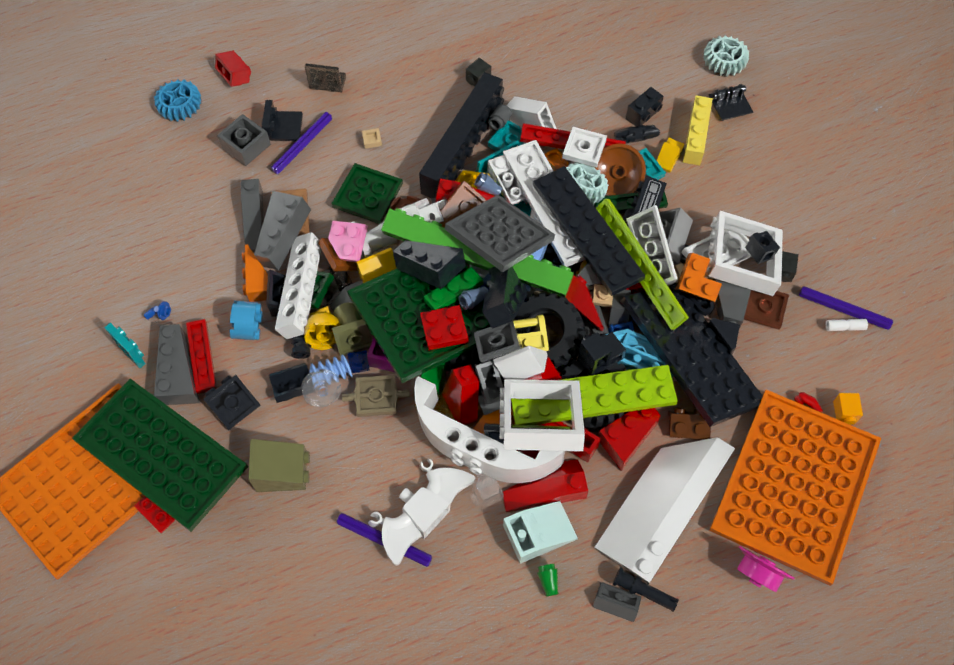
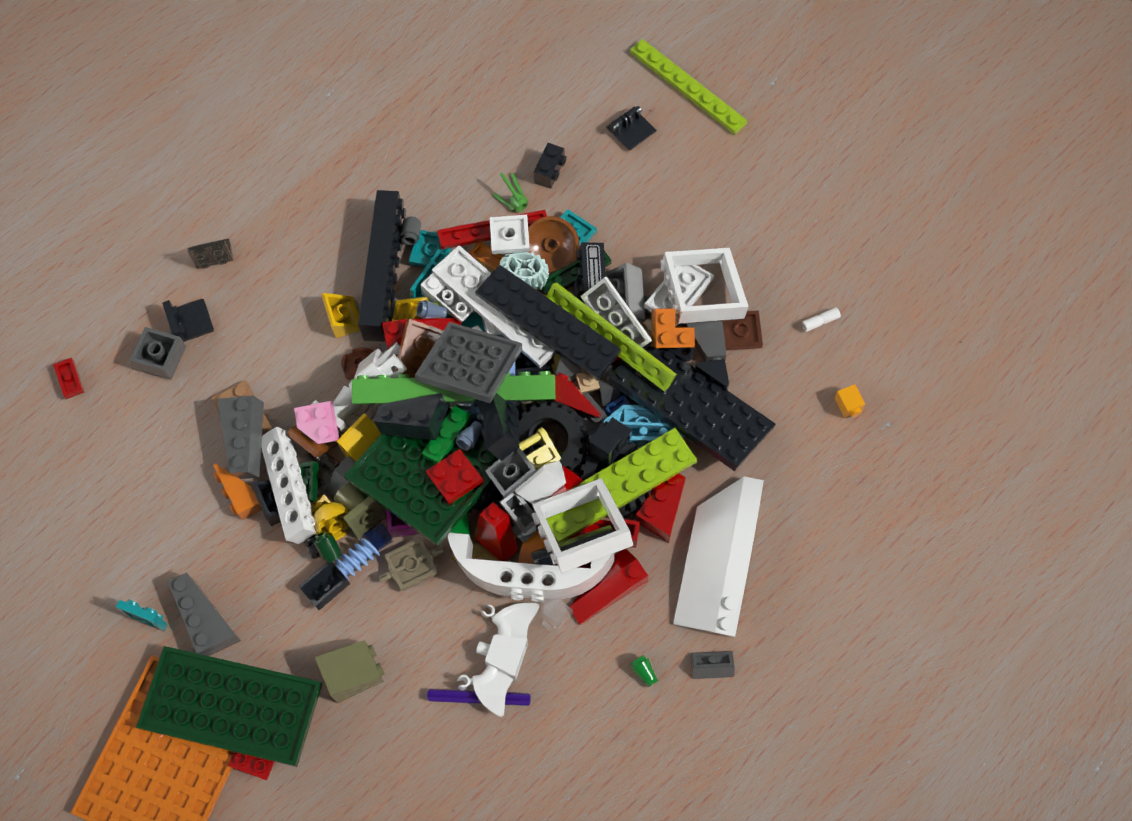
camera: 20 degrees left, 5 degrees up
(162, 310) = (159, 564): blue plate -> none
(164, 135) = (68, 378): none -> red plate
(180, 104) = (71, 338): dark azure gear -> none
(201, 356) = (221, 594): red plate -> none
(231, 401) = (273, 627): black plate -> none
(232, 68) = (107, 278): red brick -> none
(245, 320) = (249, 541): dark azure brick -> none
(252, 211) = (203, 428): dark grey slope -> none
(301, 143) = (217, 333): dark purple axle -> none
(308, 349) = (327, 546): none -> dark green brick
(317, 380) = (348, 577): clear plate -> none
(367, 193) = (310, 361): dark green plate -> none
(372, 138) = (288, 300): tan plate -> none
(410, 162) = (341, 313): none -> yellow slope
(476, 70) = (366, 188): pearl dark grey brick -> none
(530, 112) = (439, 214): white slope -> none
(538, 530) = (617, 630): light aqua slope -> none
(604, 126) = (518, 200): none -> bright green plant
(637, 133) = (552, 196): black hinge -> none
(637, 586) = (722, 643): black pin -> none
(669, 154) = (593, 206): yellow slope -> none
(688, 424) = (712, 475): reddish brown bracket -> none
(697, 130) = (610, 171): light yellow brick -> none
(726, 50) = (607, 84): light aqua gear -> none
(762, 247) = (717, 275): black brick -> none
(762, 570) = (828, 584): dark pink piece -> none
(789, 266) = (748, 282): pearl dark grey brick -> none
(796, 487) = (830, 492): orange plate -> none
(797, 87) = (688, 87): none -> lime plate
(809, 400) = (813, 407): red arm -> none
(846, 307) = (814, 302): dark purple axle -> none

